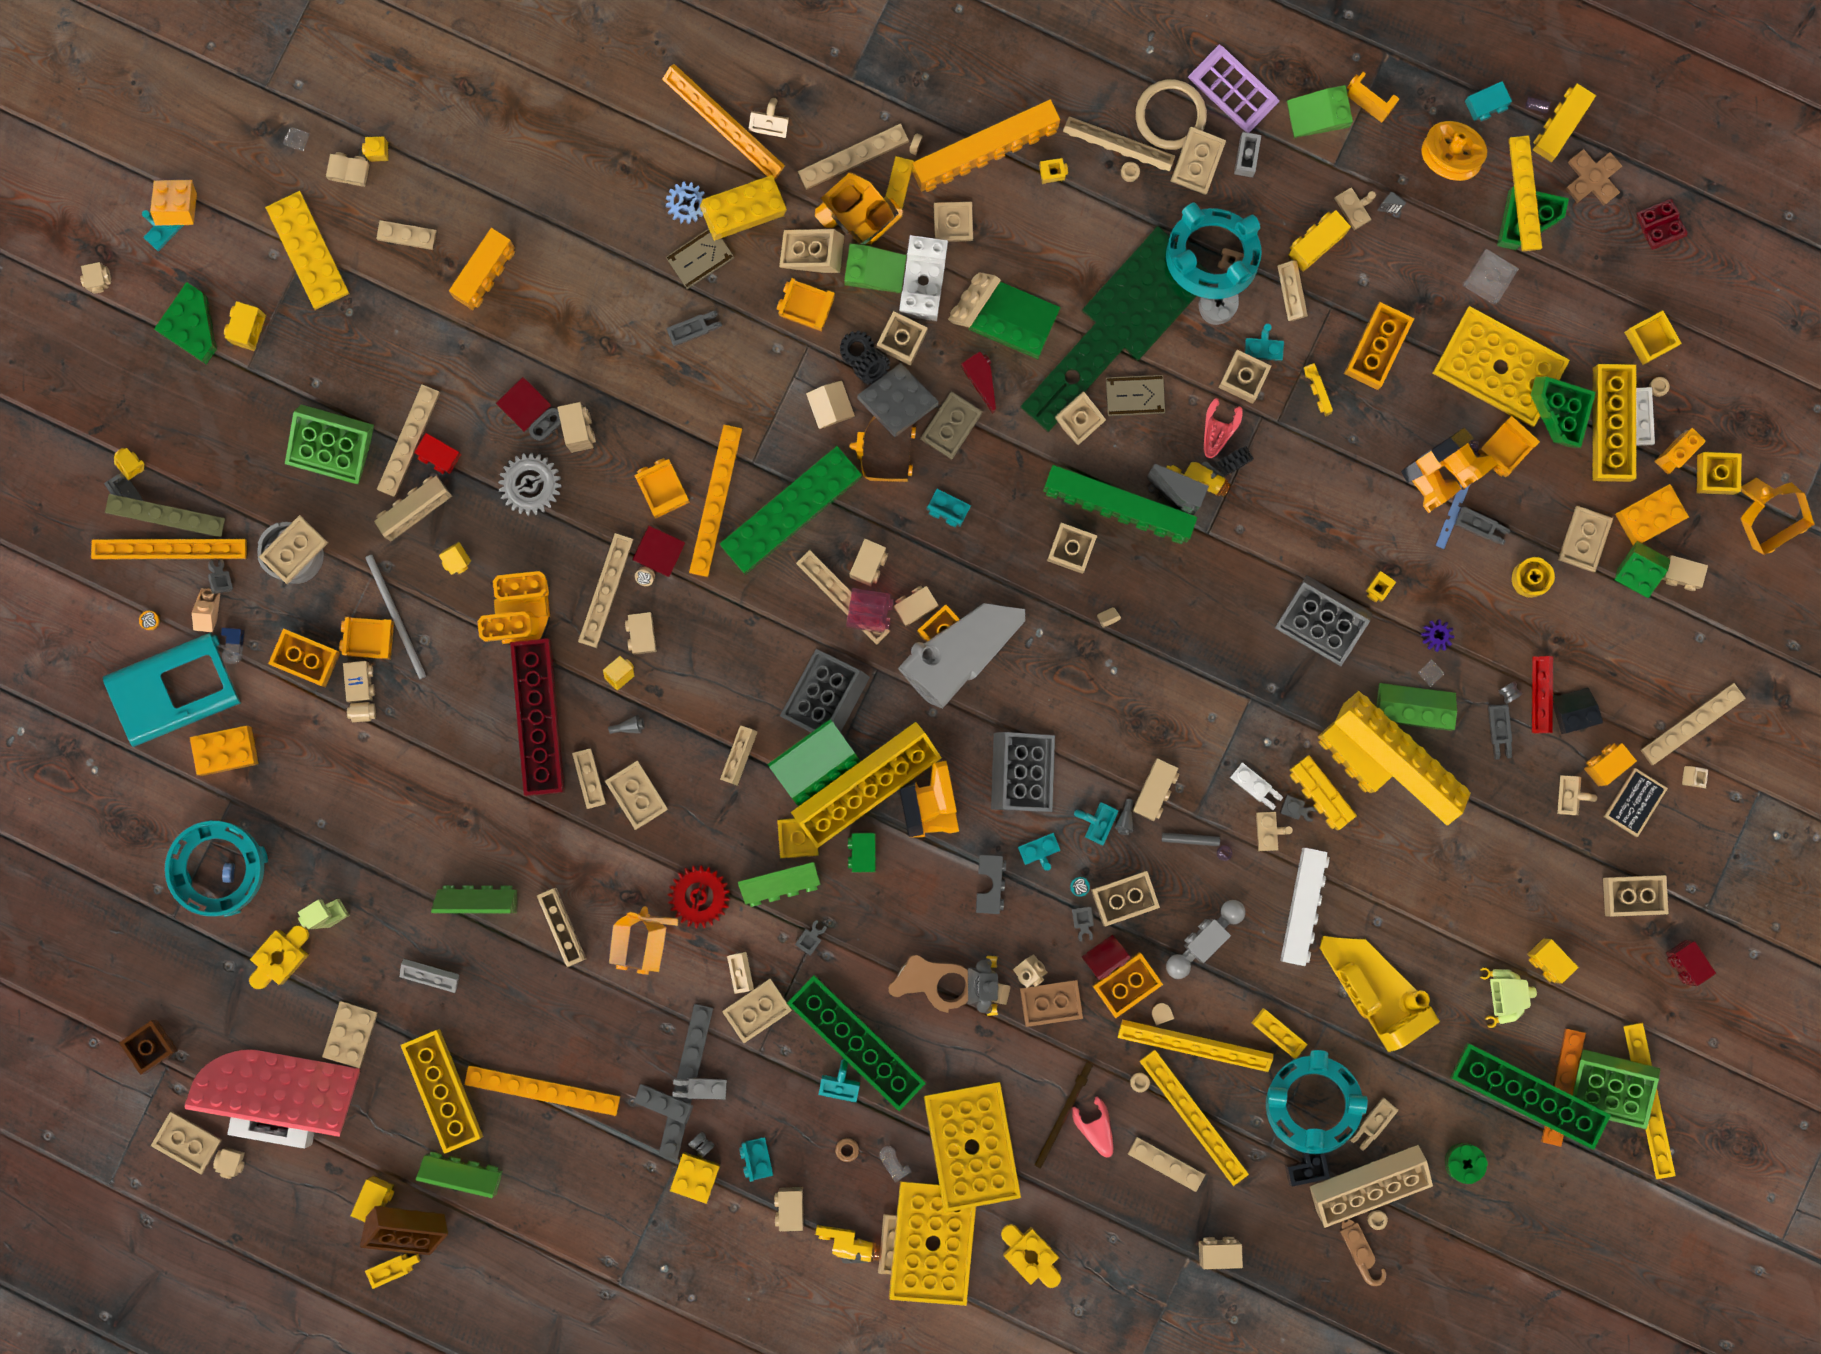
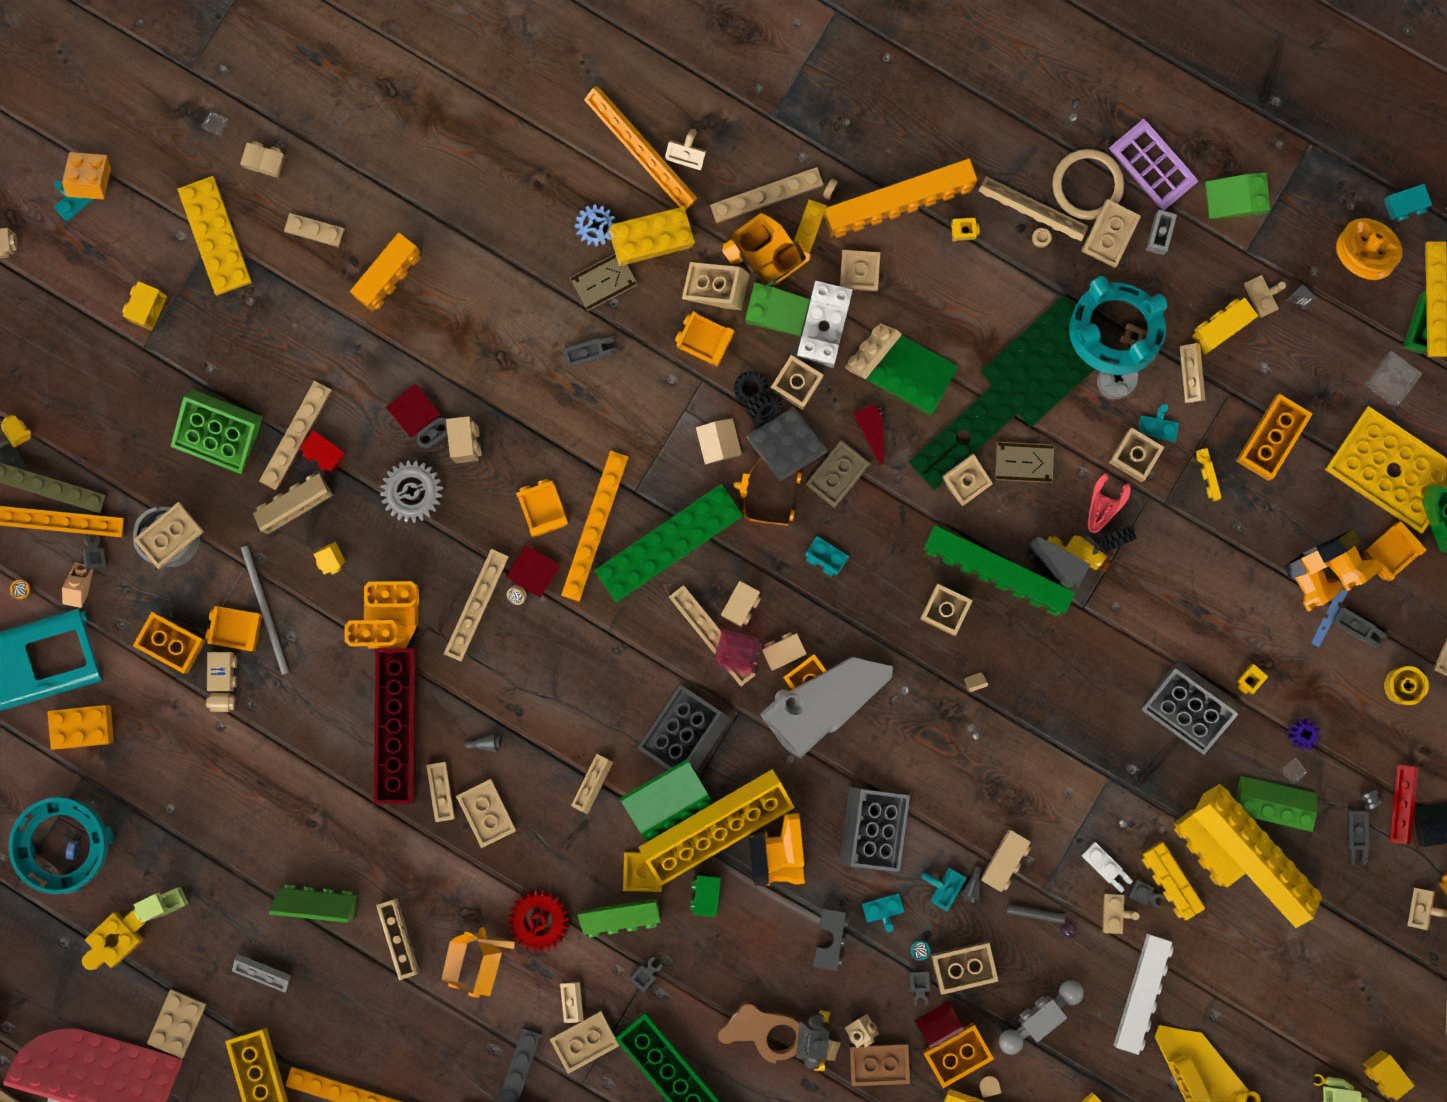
camera: 15 degrees right, 0 degrees up
(189, 323) = (90, 298): green brick -> none
(234, 645) = (101, 623): leg -> none
(375, 148) = (292, 141): yellow brick -> none
(619, 672) = (481, 689): yellow brick -> none
(641, 633) = (507, 651): tan brick -> none
(1368, 100) = (1288, 190): light orange panel -> none

